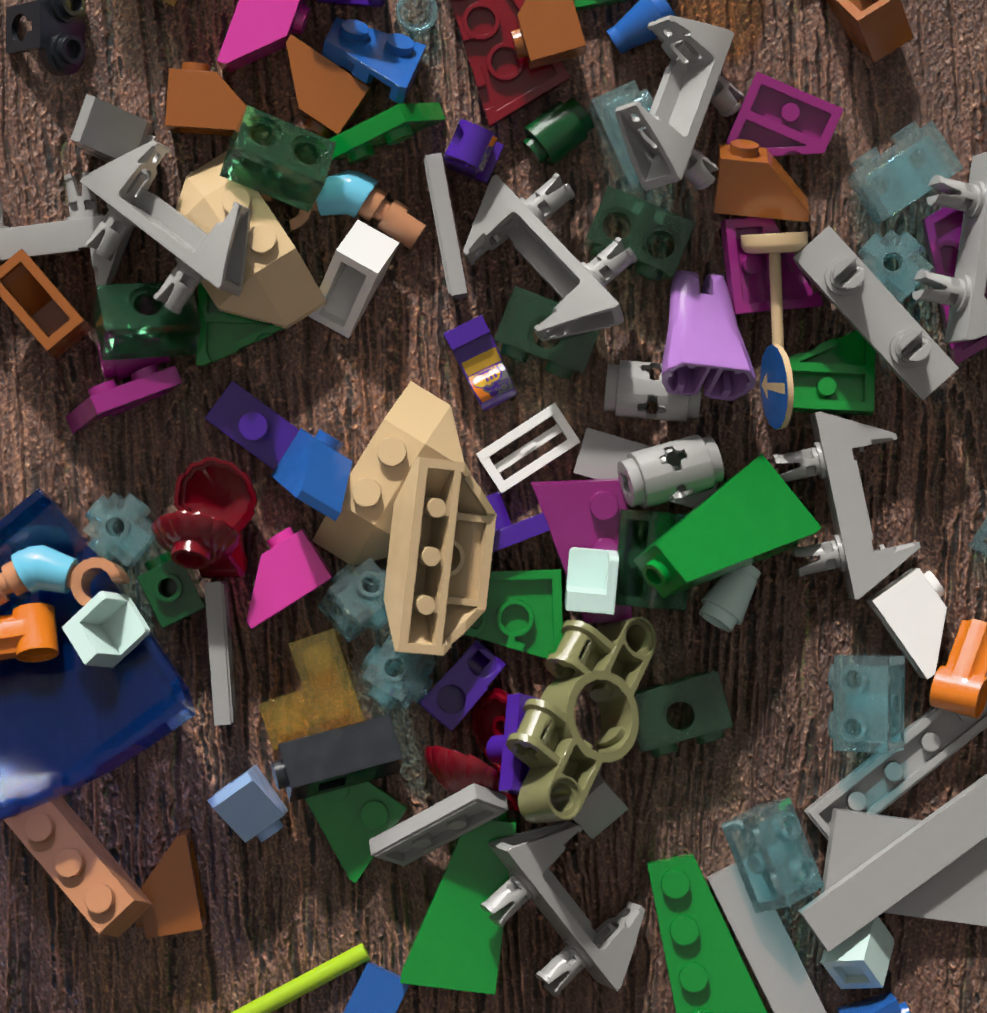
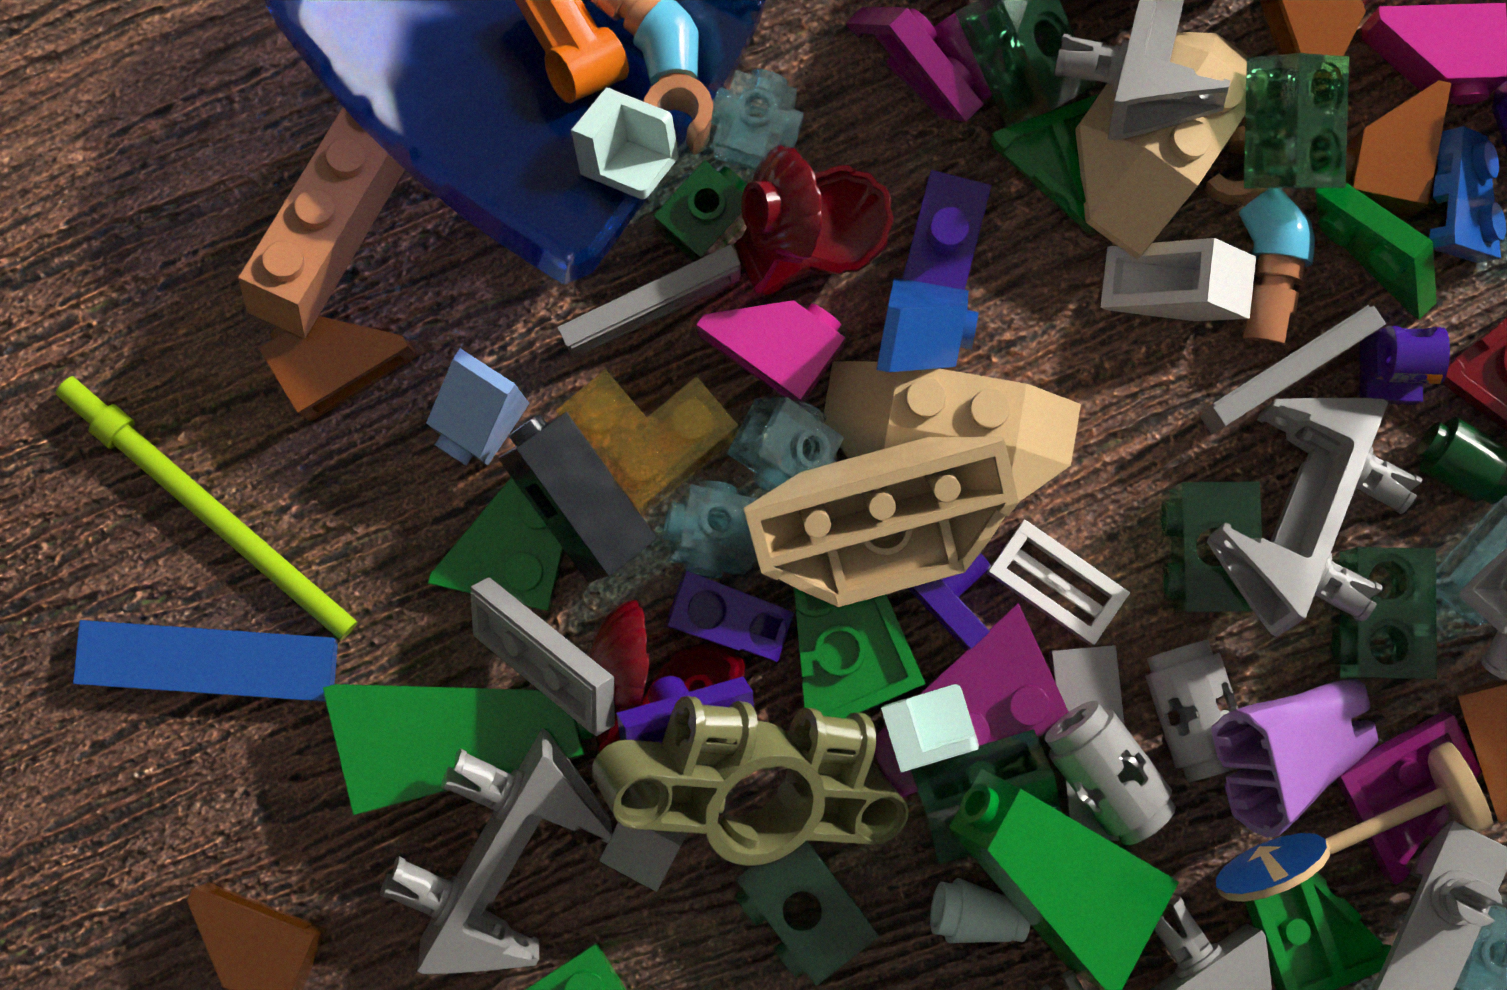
camera: 70 degrees right, 5 degrees down
(481, 362) = (1142, 478): dark purple leg -> none

